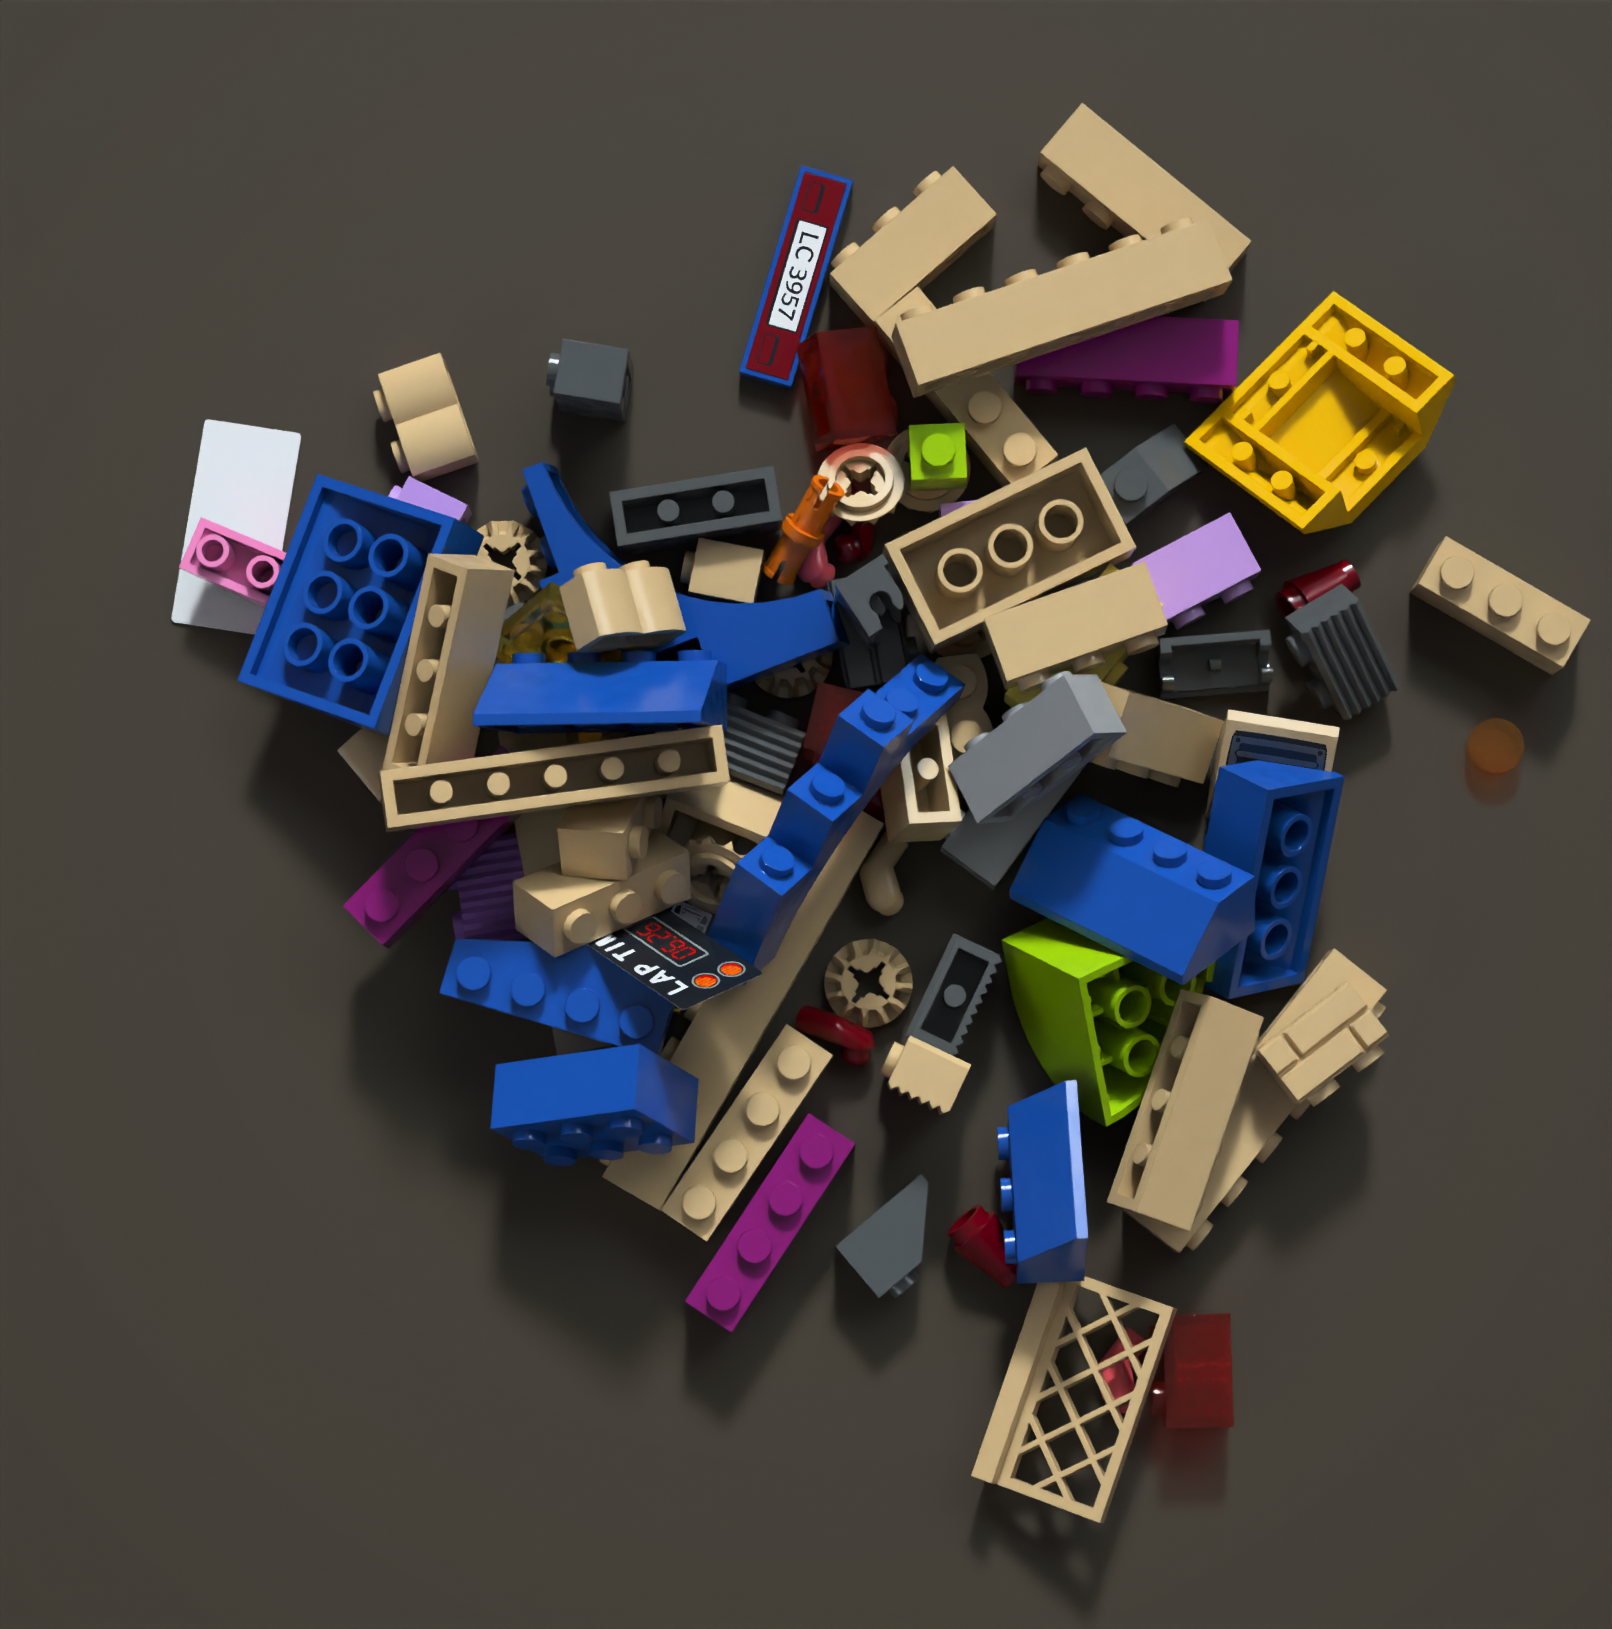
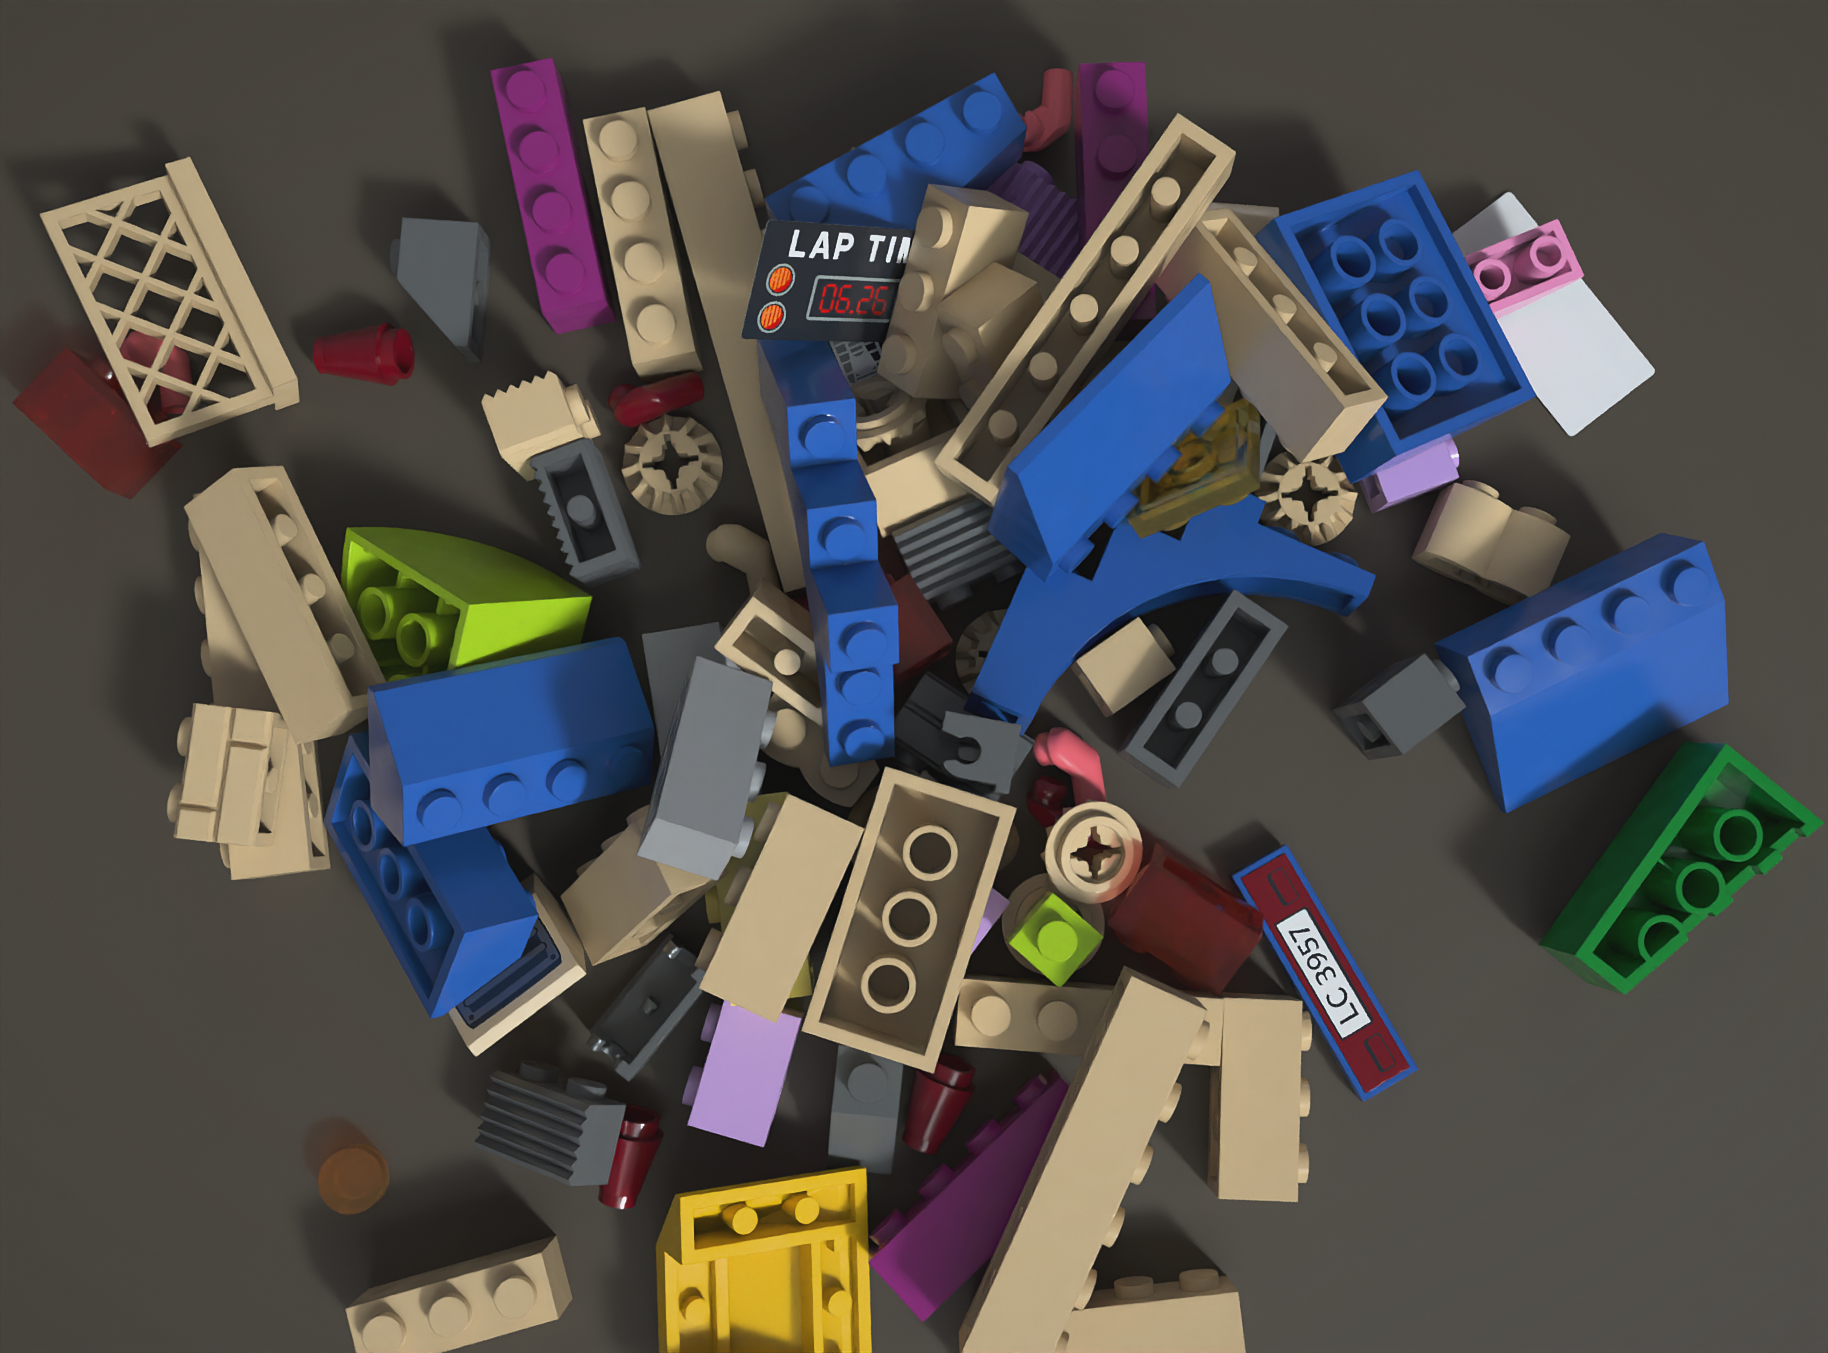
camera: 125 degrees right, 0 degrees up
(409, 959) = (1053, 115): none -> coral arm
(452, 287) = (1592, 667): none -> blue slope
(527, 125) = (1674, 863): none -> green wedge
(595, 1104) = (775, 122): blue brick -> none
(621, 607) = (1179, 528): tan brick -> none
(803, 530) = (1099, 763): orange pin -> none
(1044, 1187) = (350, 431): blue slope -> none
(1104, 434) = (937, 1102): none -> dark red cone

